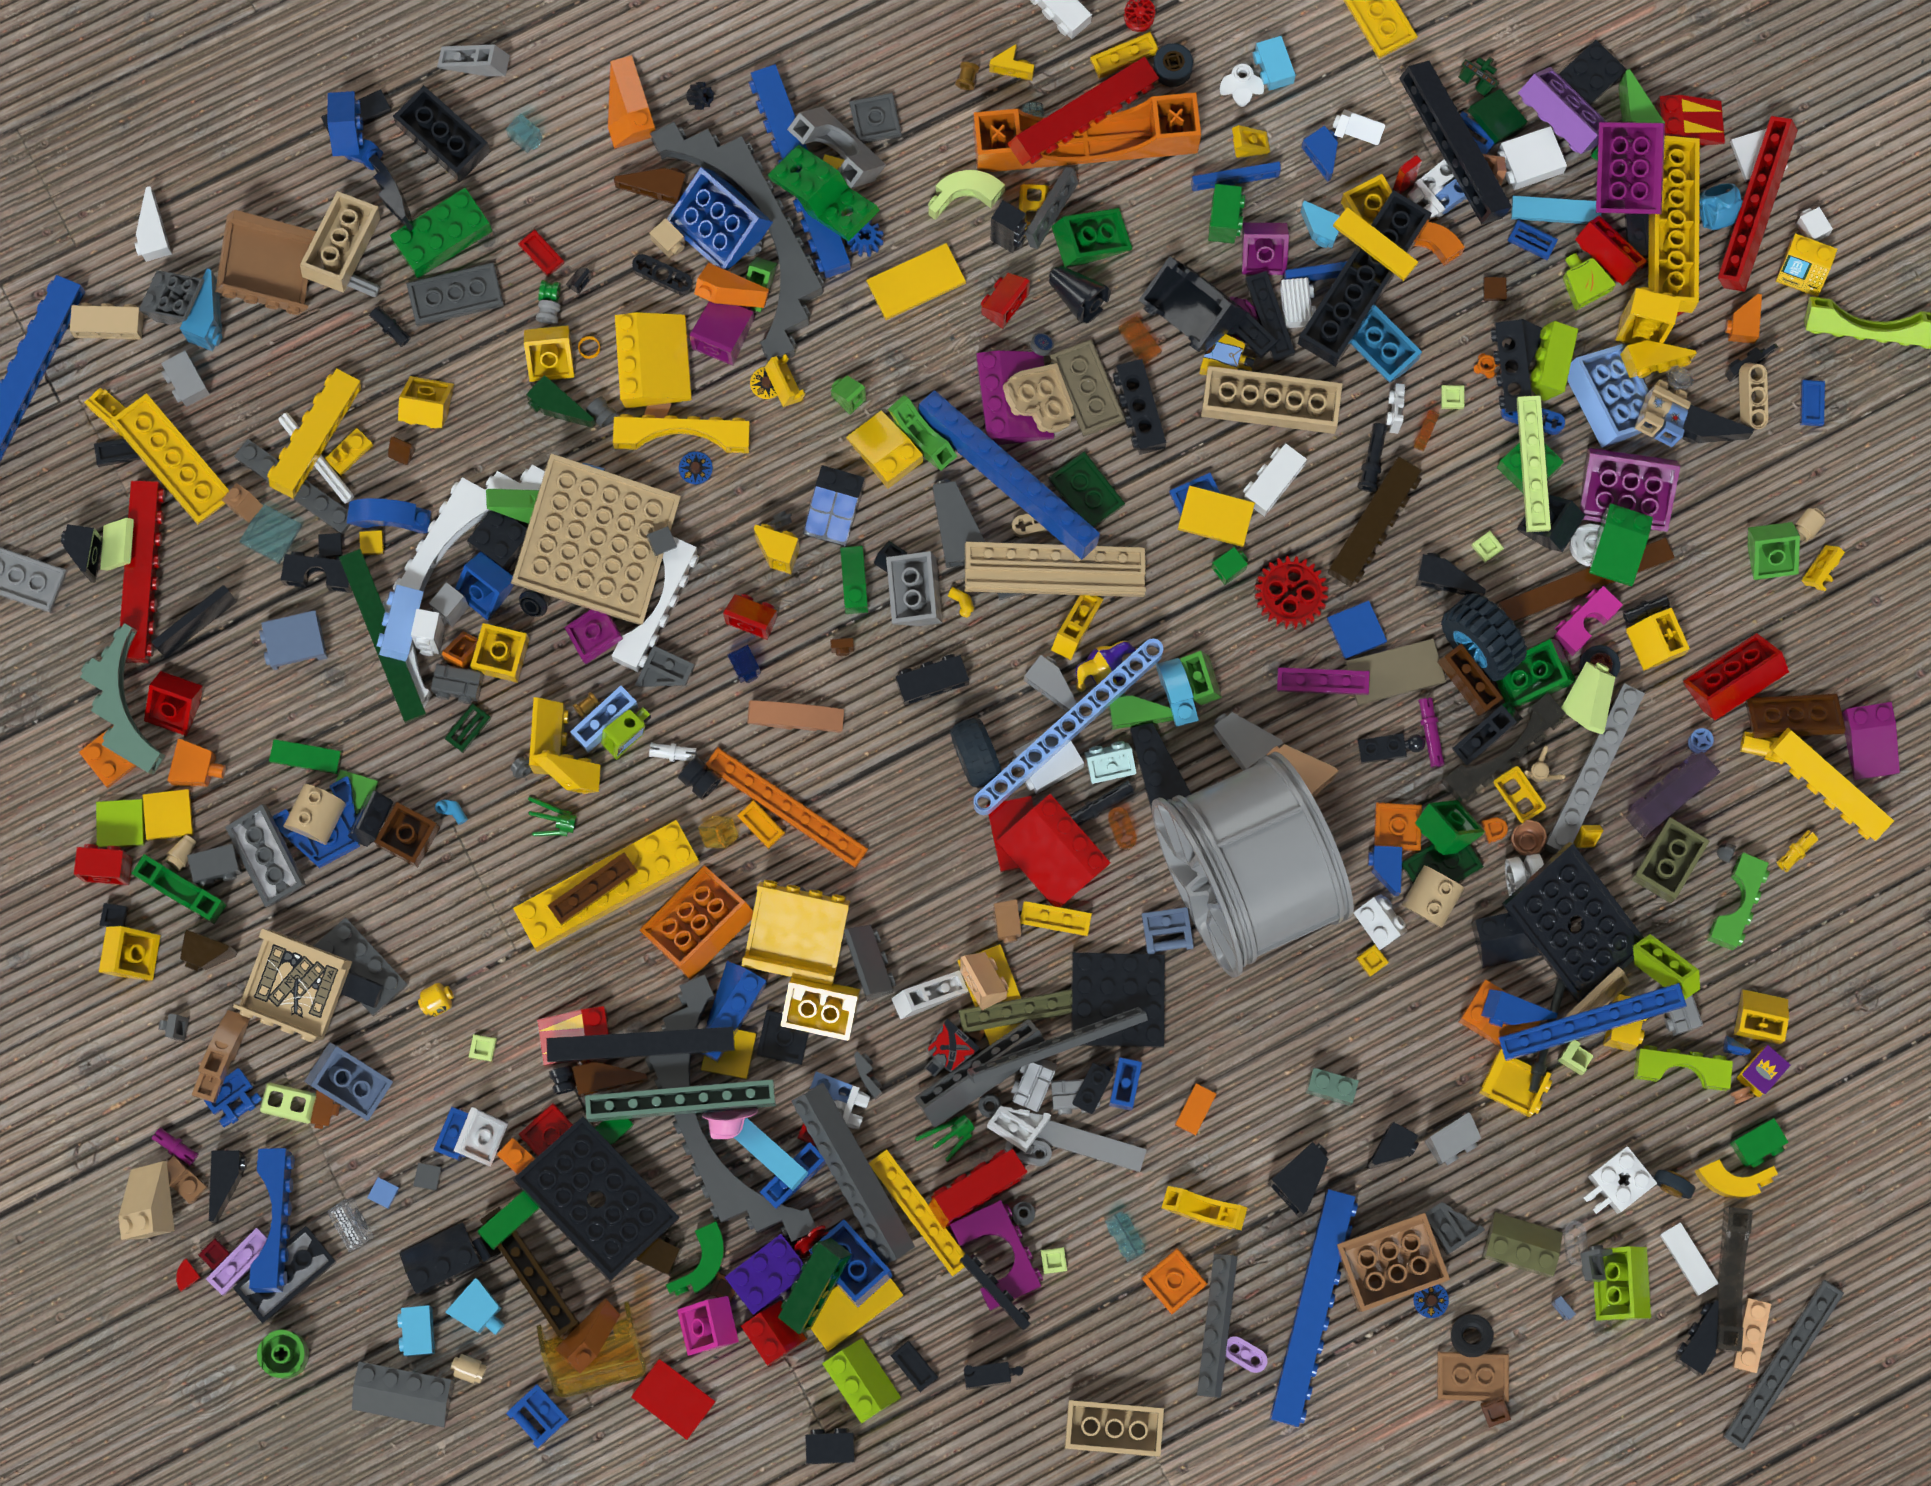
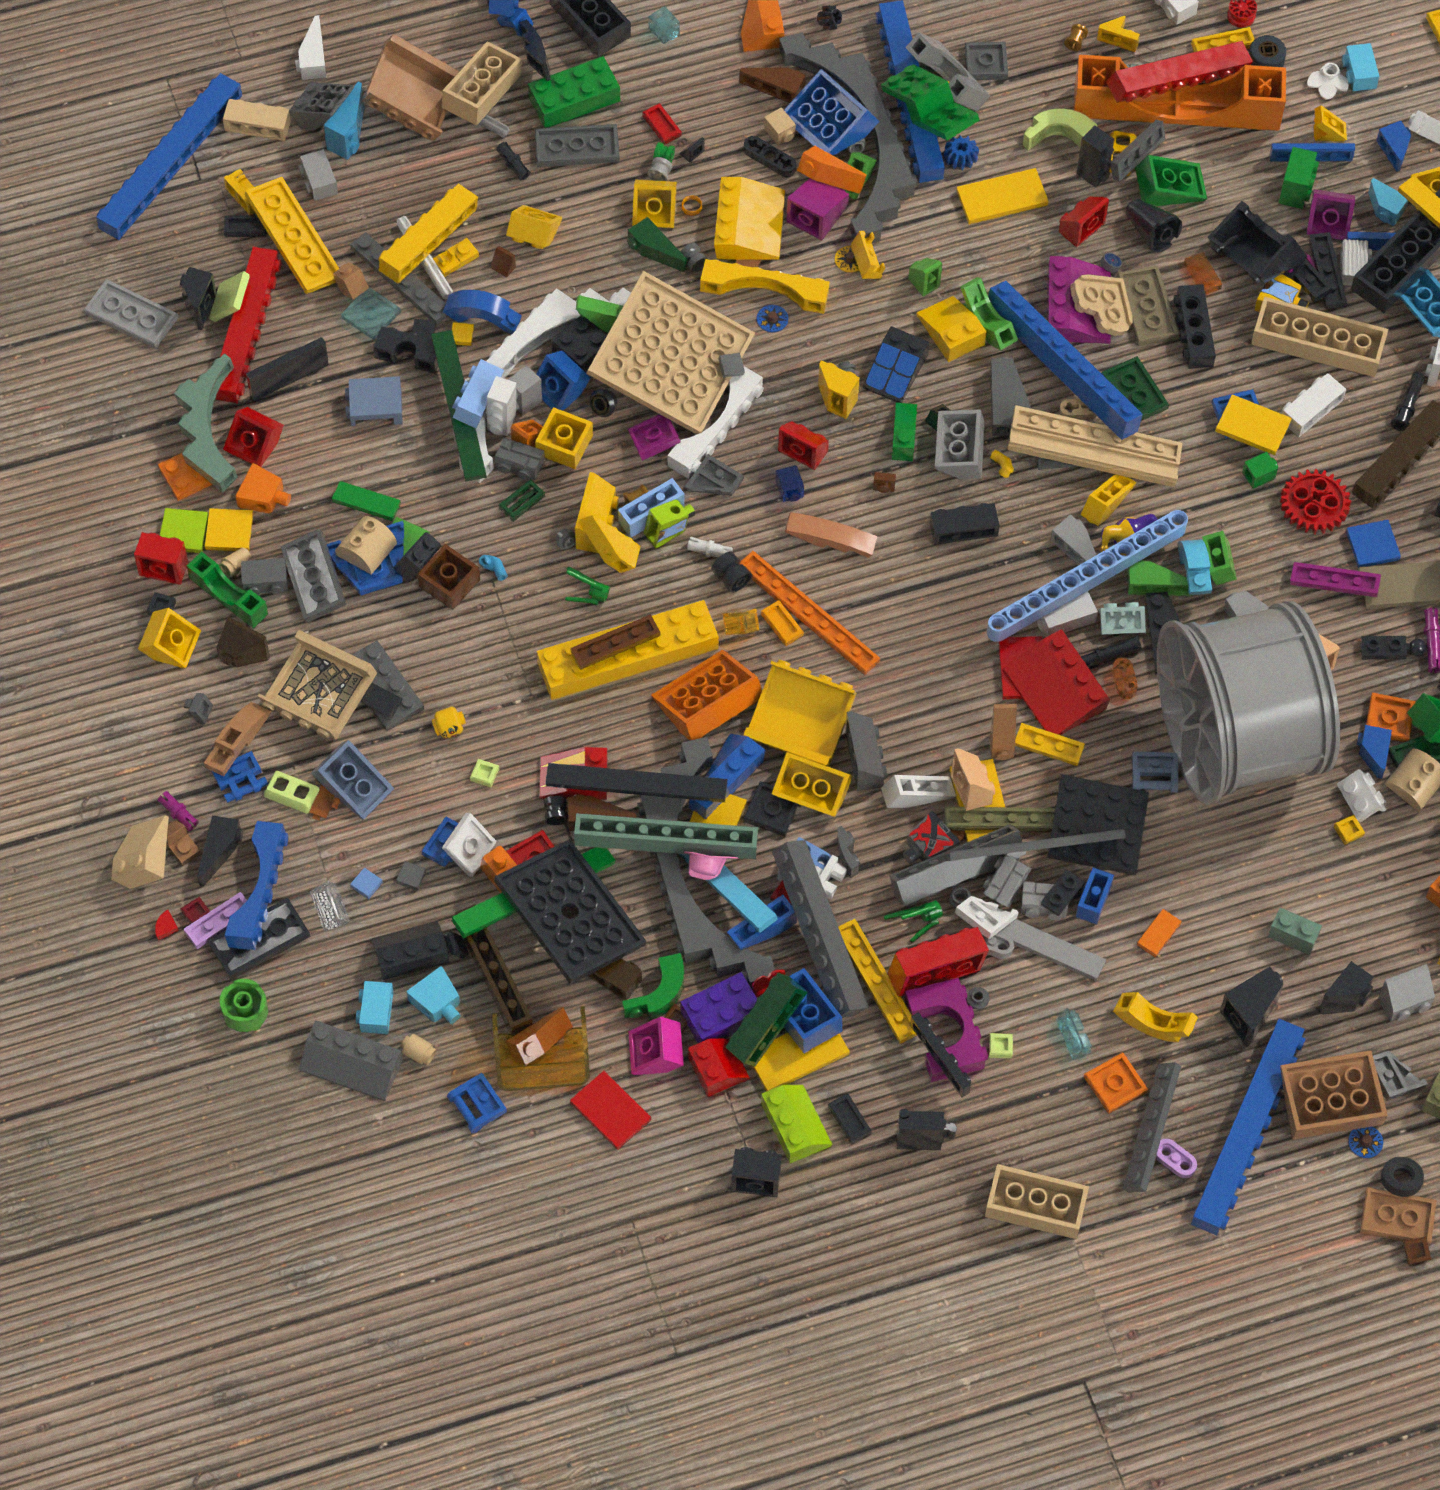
camera: 10 degrees right, 15 degrees down
(975, 752) = (995, 583): black wheel -> none

